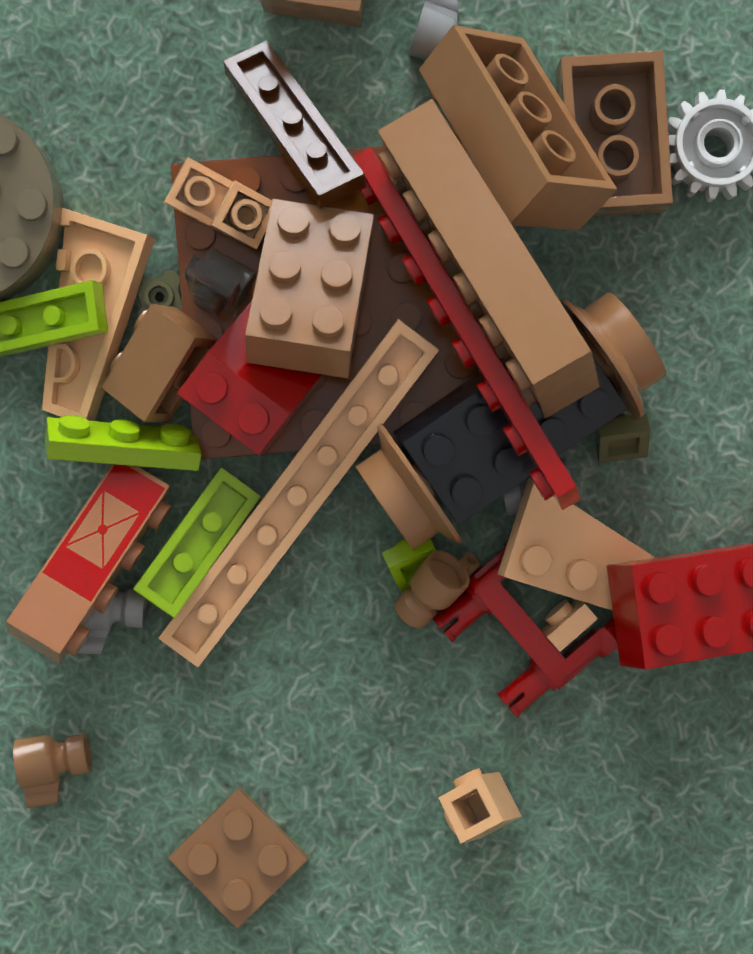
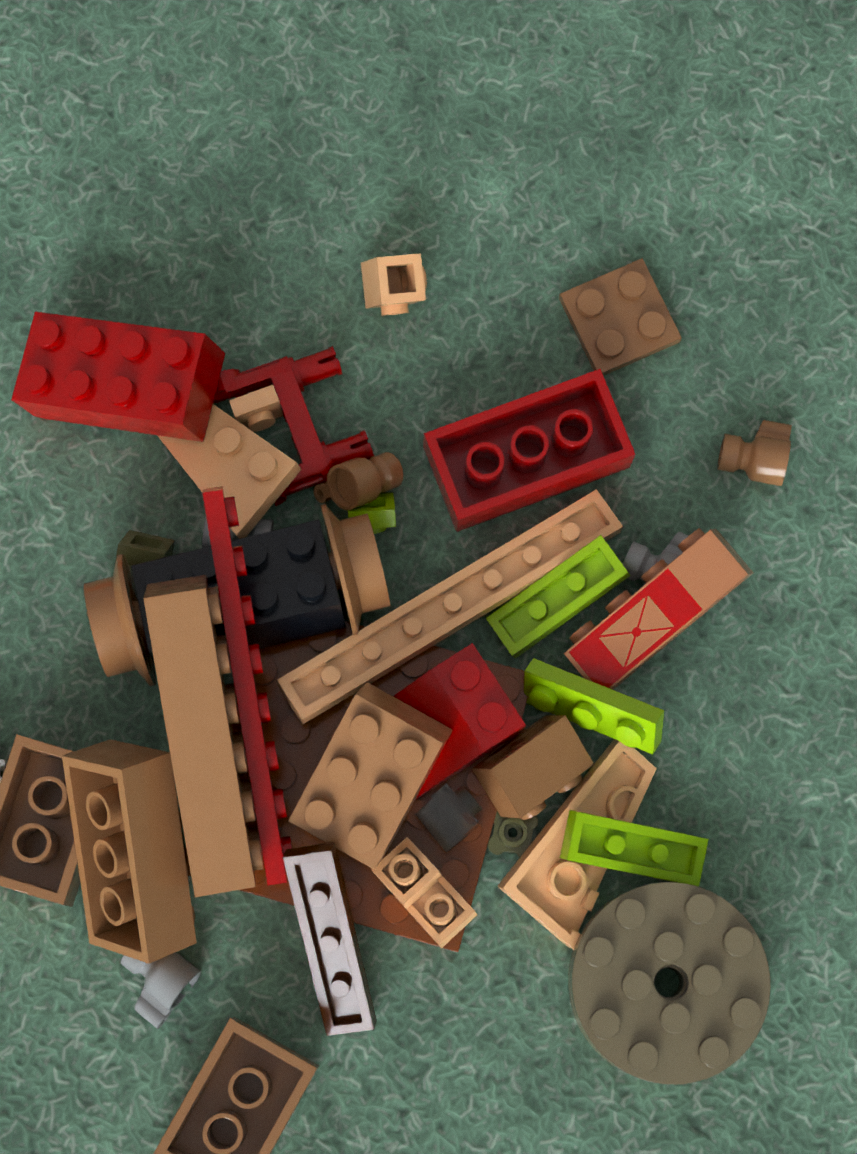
camera: 160 degrees left, 10 degrees down
(278, 681) = (528, 450): none -> red brick

